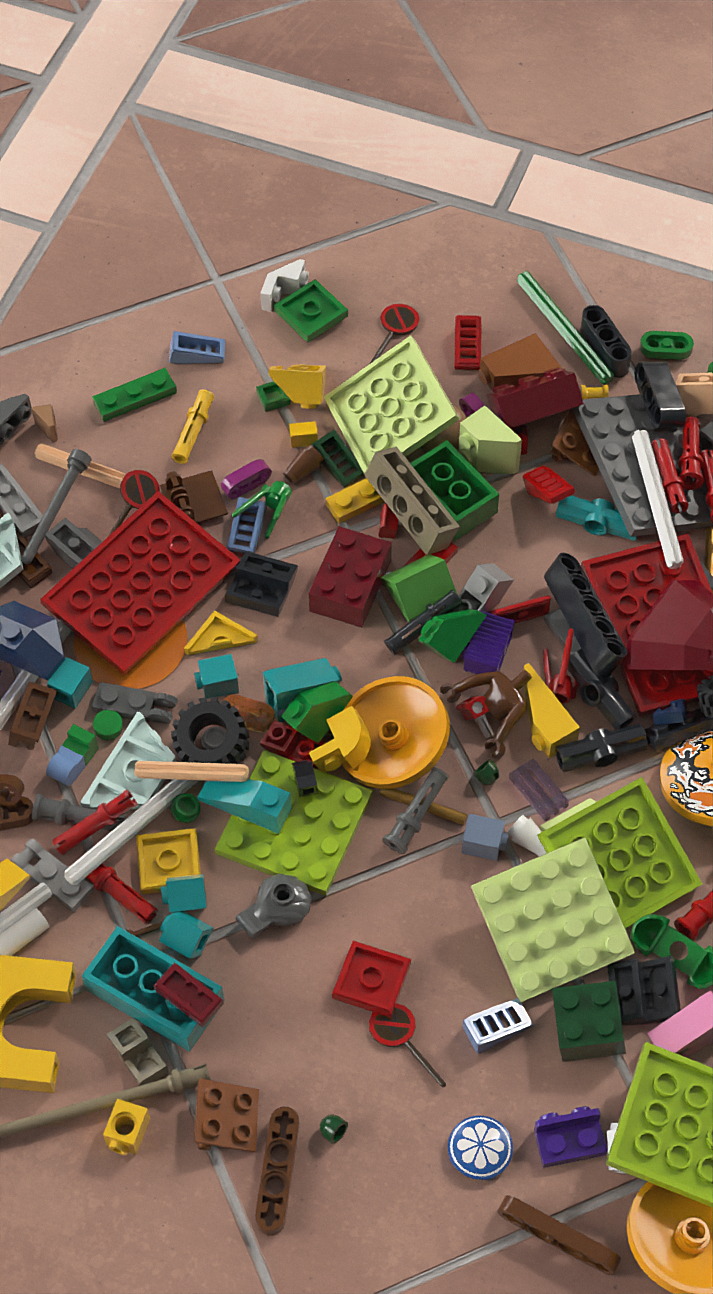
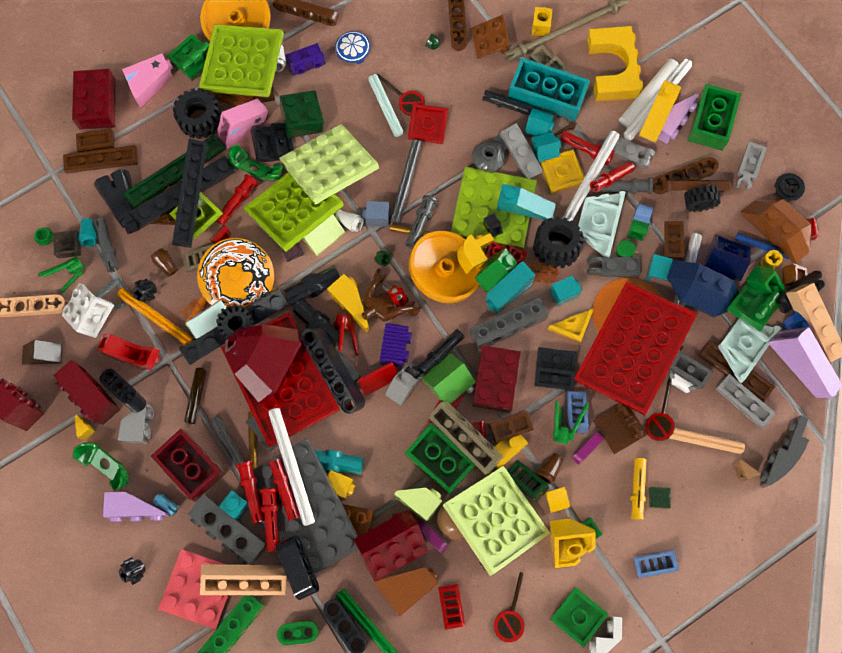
camera: 170 degrees right, 15 degrees up
(77, 463) = (710, 432): dark grey piece -> none
(134, 394) = (690, 513): green plate -> none
(168, 416) = (659, 497): none -> clear green tile
(185, 808) = (562, 202): green plate -> none
(188, 994) = (526, 74): dark red plate -> none
(191, 771) = (562, 211): light nougat axle -> none
(228, 894) = (521, 151): none -> light grey plate
(235, 992) = (509, 103): none -> black pin
(328, 638) = (508, 324): none -> dark grey brick
(348, 513) = (510, 426): none -> reddish brown hinge
(427, 888) = (405, 182): none -> dark grey axle
(439, 1025) = (385, 105): none -> light aqua axle
(451, 632) = (419, 343): green slope -> none
(481, 1043) = (355, 101): slope -> none
(547, 485) = (379, 484): red slope -> none
(553, 808) = (358, 265): clear purple tile -> none
(590, 485) = (342, 485): none -> yellow brick
(594, 392) = (348, 570): yellow bush -> none
(672, 714) = (269, 312): dark blue tile -> none

